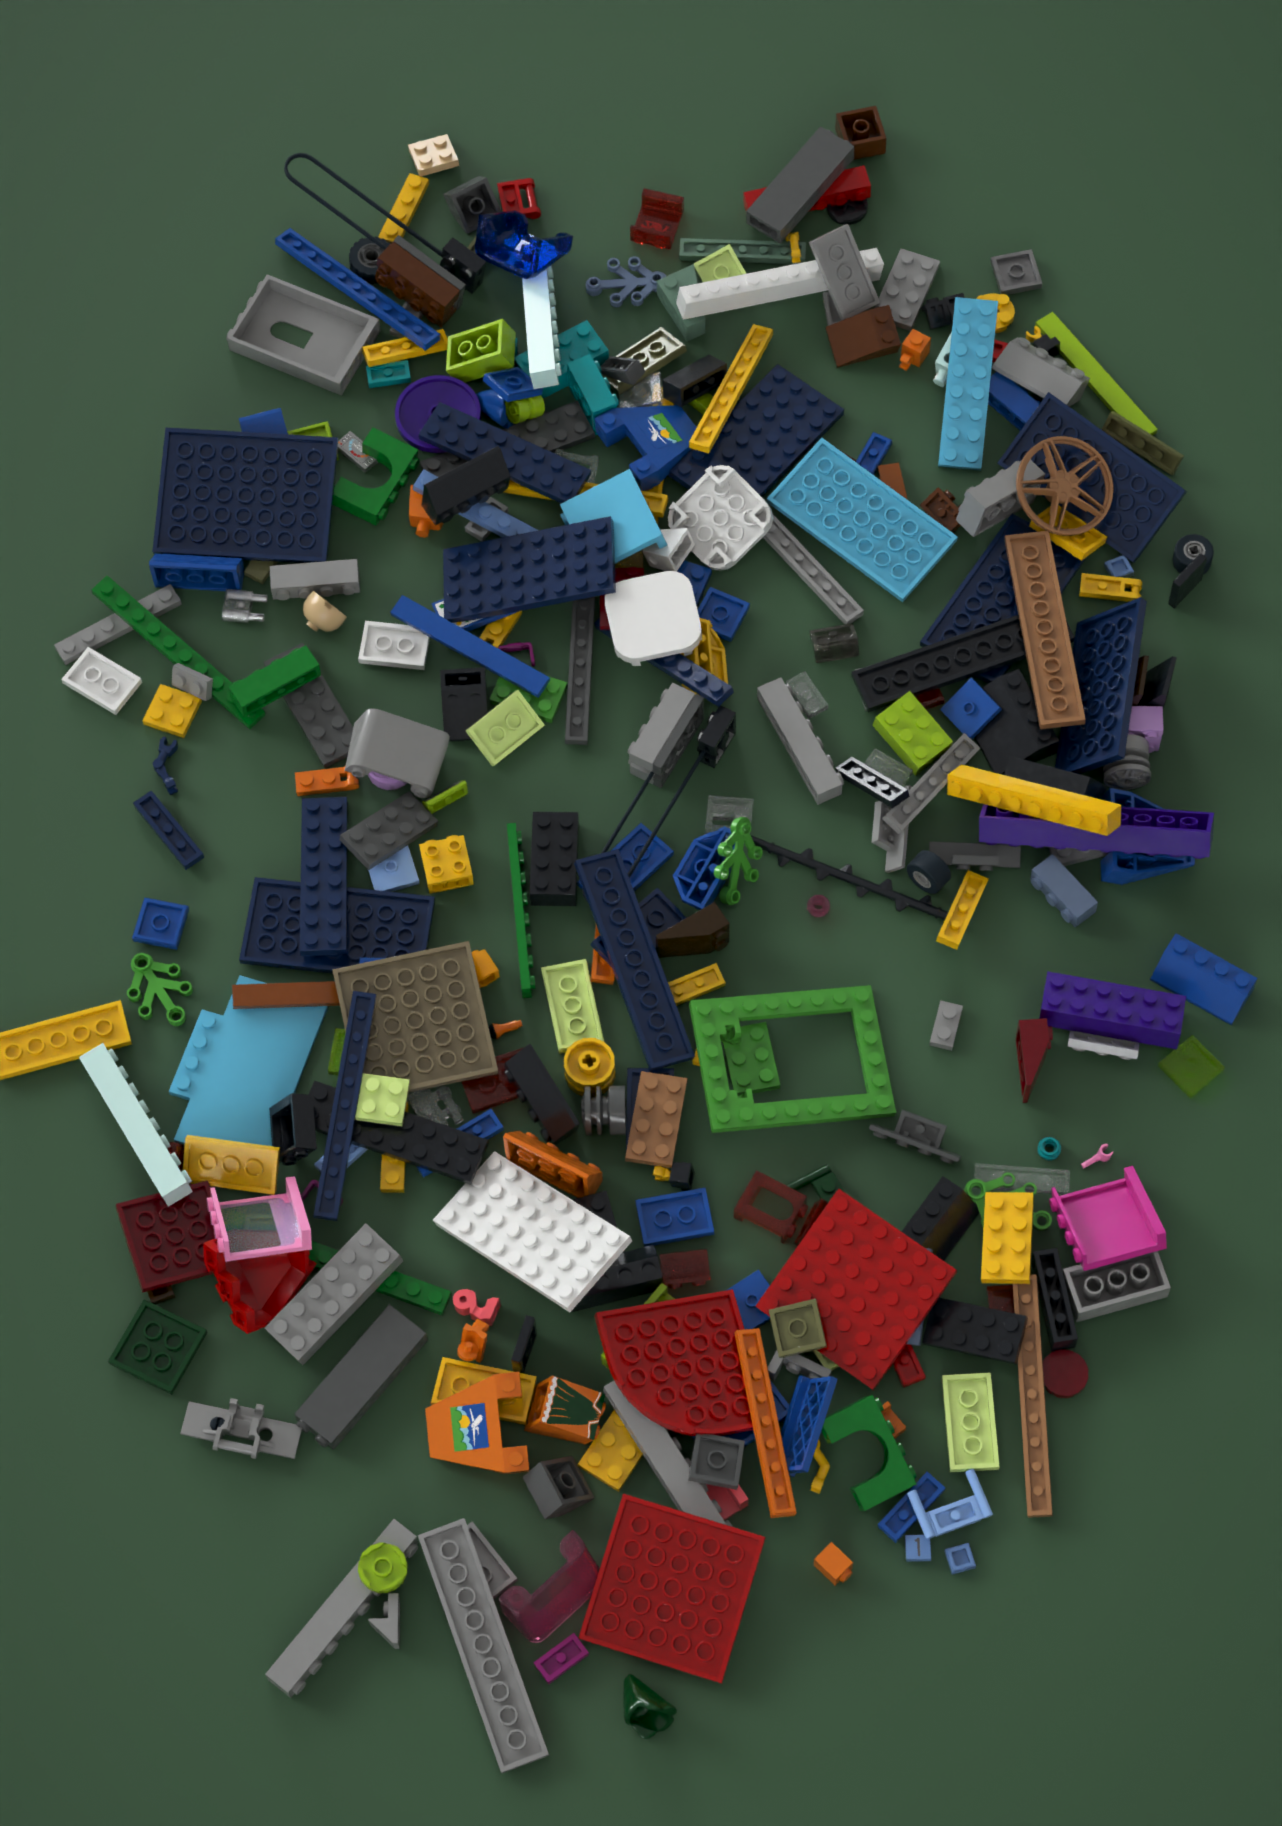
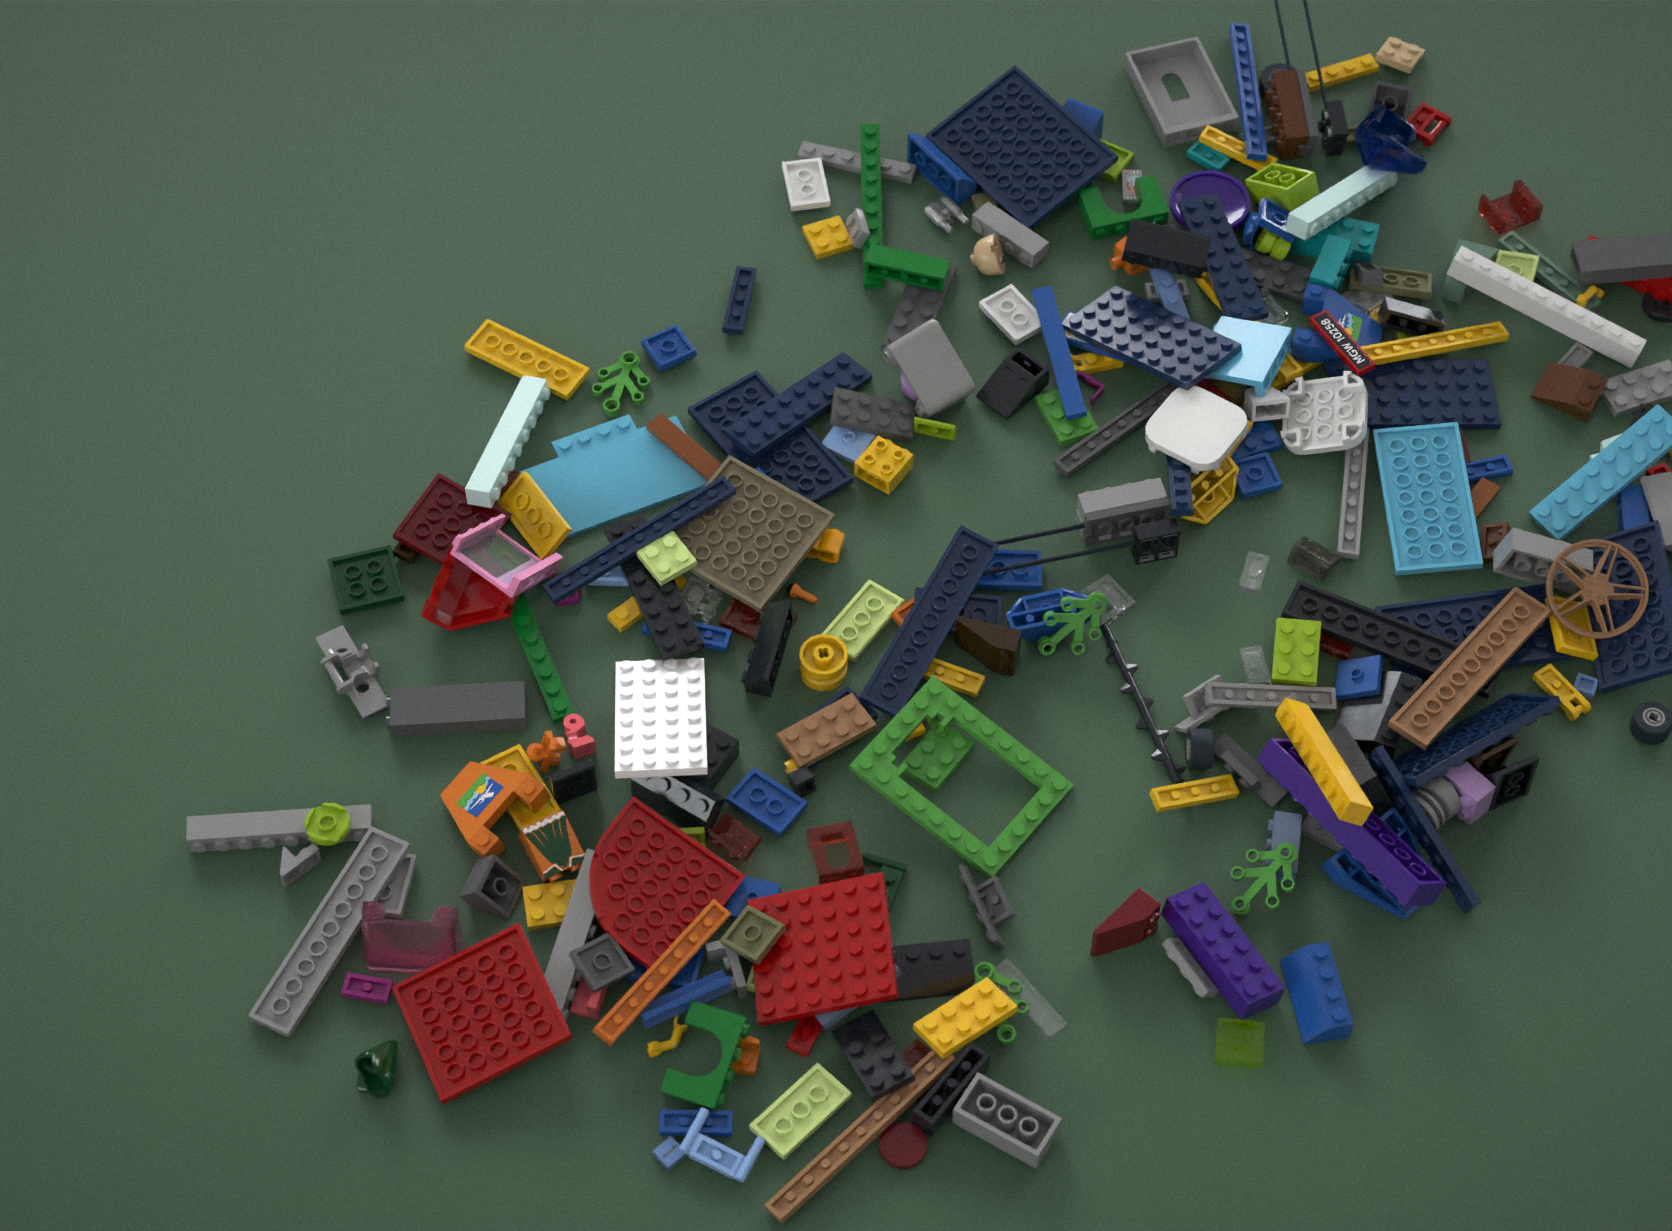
camera: 45 degrees right, 10 degrees down
(159, 764) = (796, 255): dark blue piece -> none
(293, 1127) = (594, 527): black window -> none
(324, 781) = (869, 355): orange plate -> none
(334, 1294) = (499, 643): light grey brick -> none
(505, 728) = (1022, 419): yellowish green plate -> none
(521, 918) = (892, 537): green plate -> none
(552, 1165) = (727, 692): orange slope -> none
(553, 859) = (969, 507): black brick -> none
(604, 1110) = (798, 693): dark grey wheel -> none
(628, 283) = (1416, 215): sand blue plant -> none
(677, 447) = (1342, 343): none -> tile
(800, 741) = (1212, 595): light grey brick -> none
(818, 900) = (1100, 700): clear pink plate -> none
(834, 1564) = (602, 1105): orange brick -> none
(844, 272) = (1599, 331): light grey plate -> none
(872, 782) = (1227, 658): plate -> none
(914, 349) = (1598, 427): orange brick -> none
(946, 1025) = (1096, 857): light grey plate -> none
(960, 1558) = (689, 1188): medium blue tile -> none
(1049, 1142) = (1070, 991): teal plate -> none
(1081, 924) = (1266, 875): none -> bright green plant
(1099, 1156) = (1101, 1036): bright pink hand -> none
(1109, 1221) = (1047, 1075): dark pink panel -> none
(1145, 785) = (1423, 829): none -> dark blue plate
(1187, 580) = (1623, 731): black tile -> none

